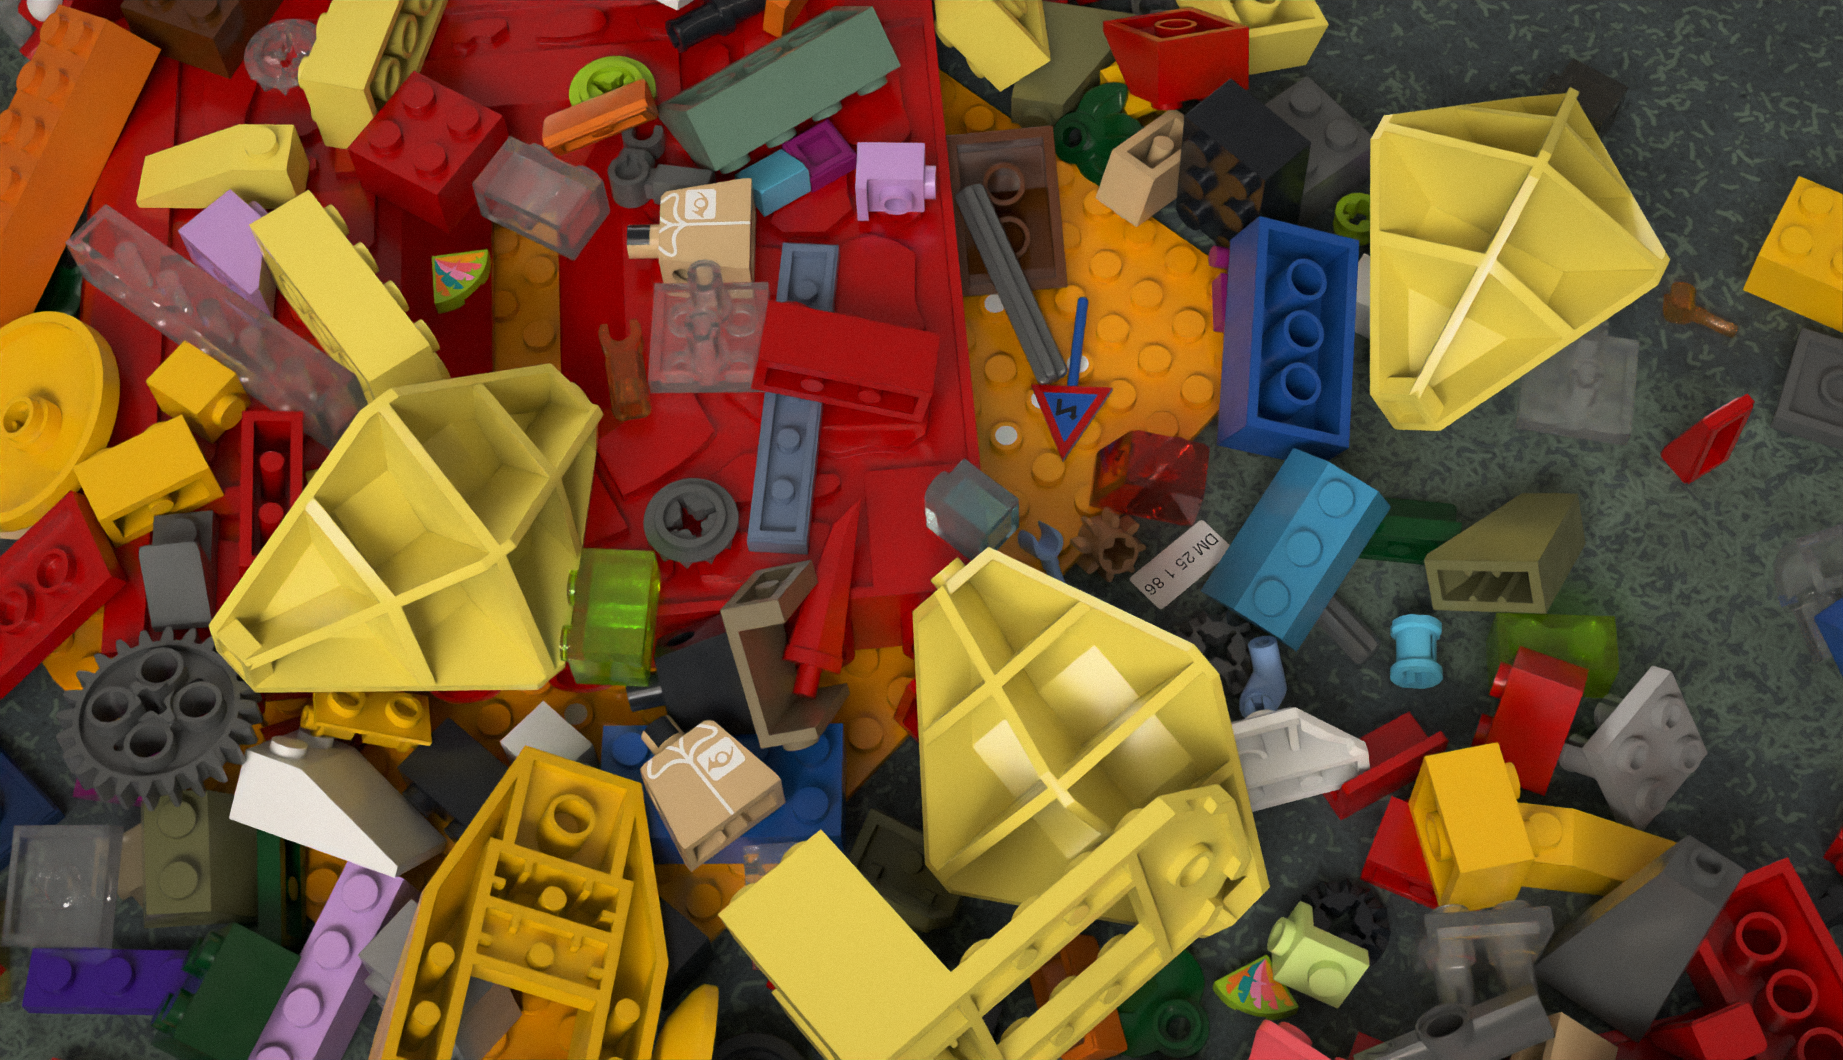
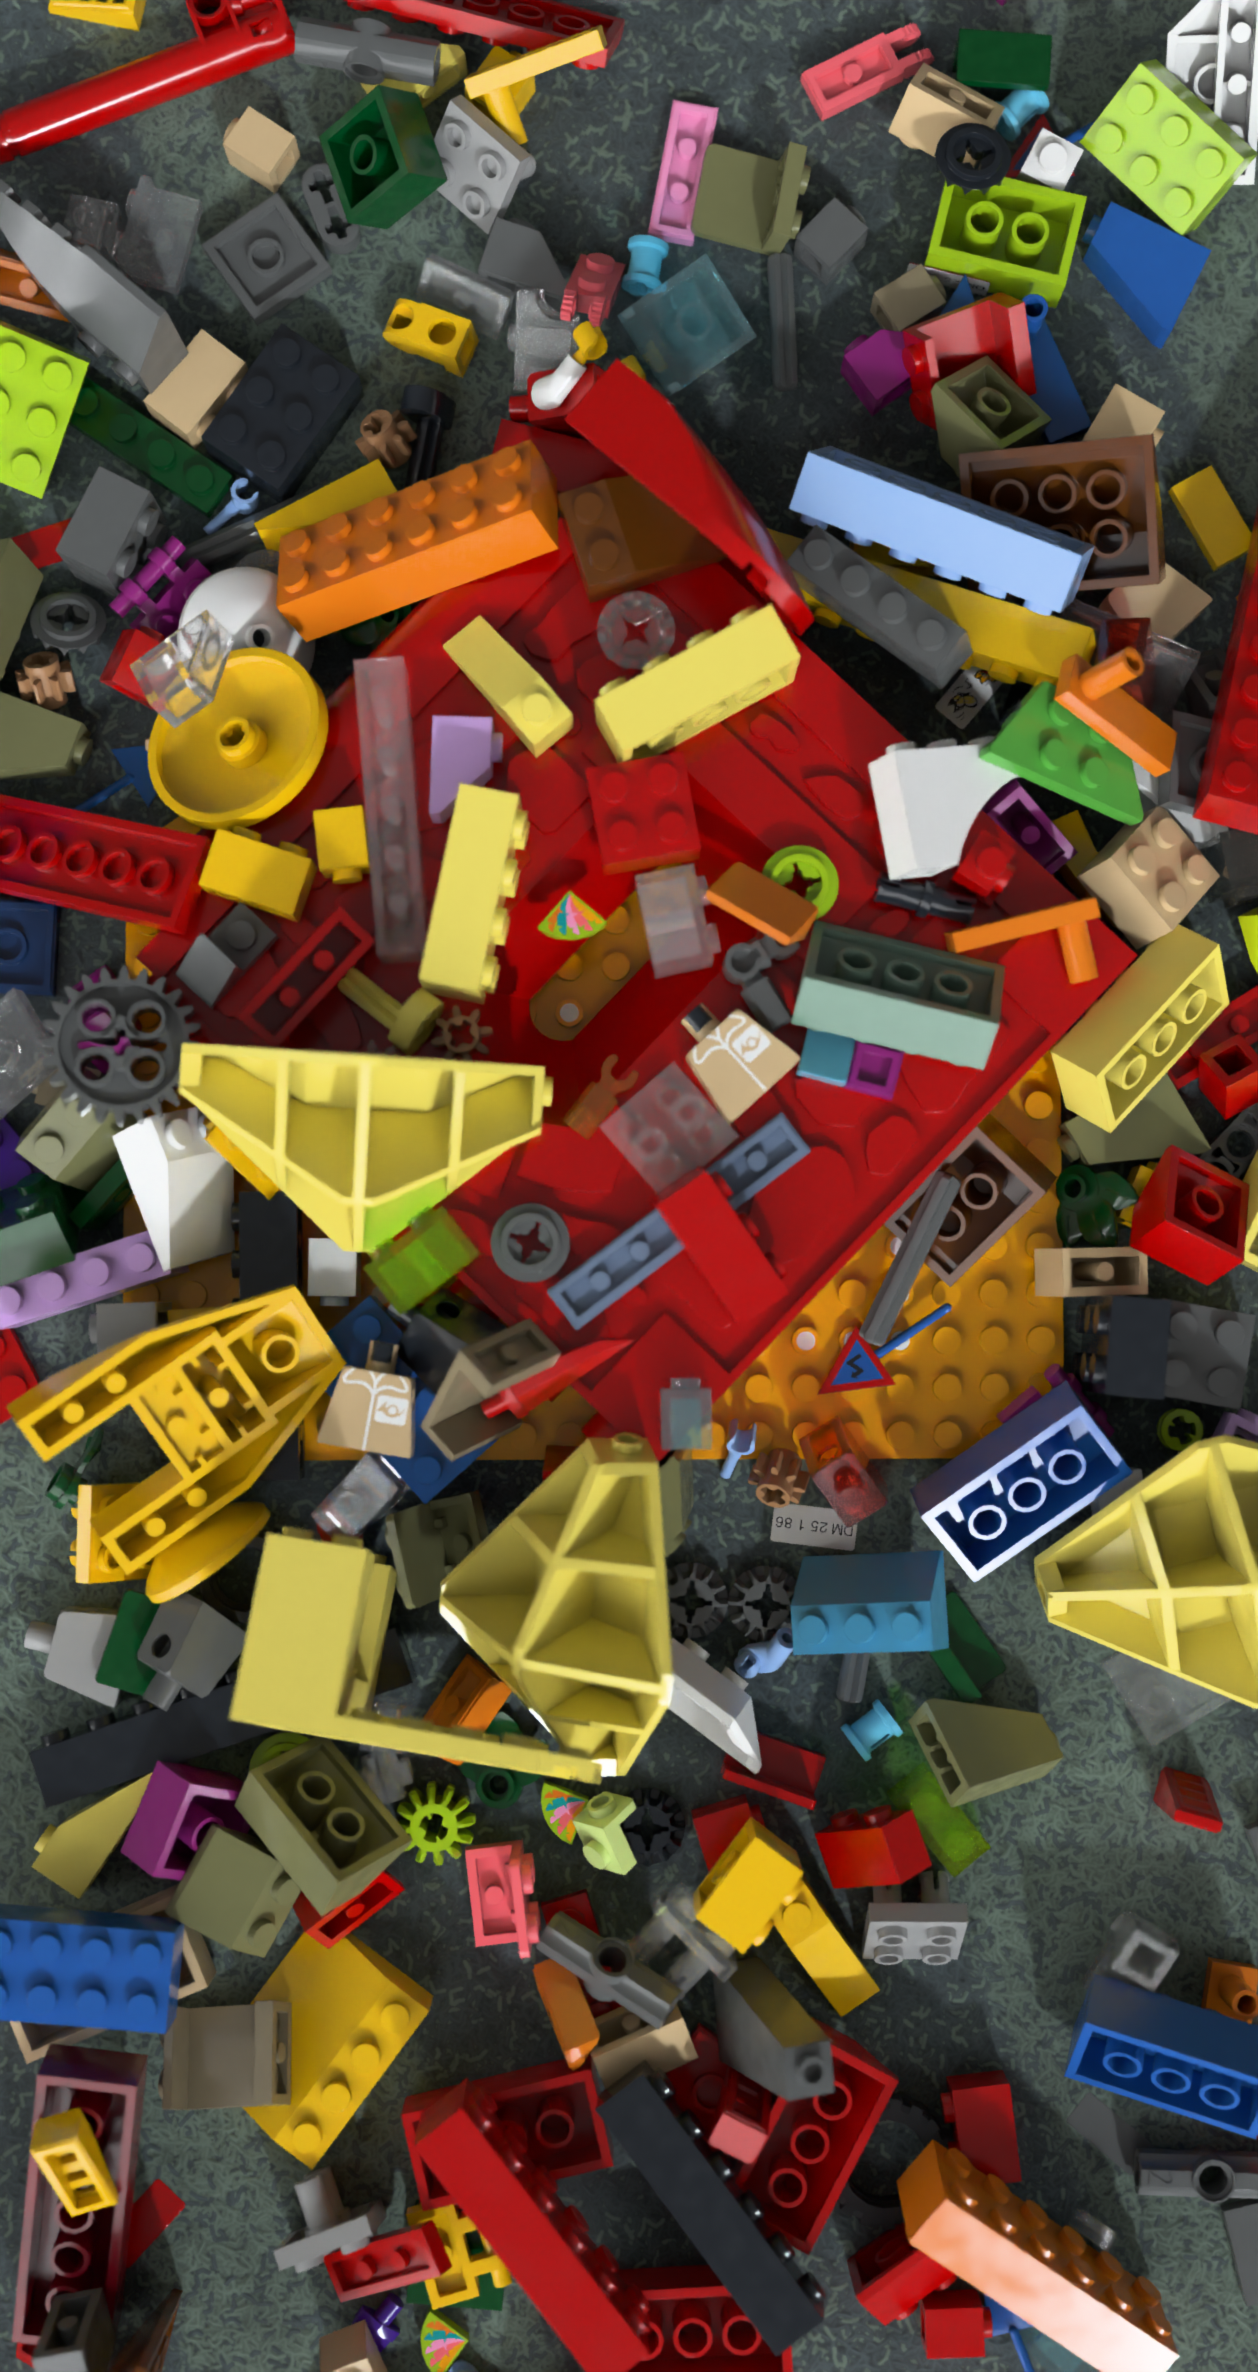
camera: 40 degrees right, 25 degrees up
(892, 178) = (891, 1144): lavender brick -> none

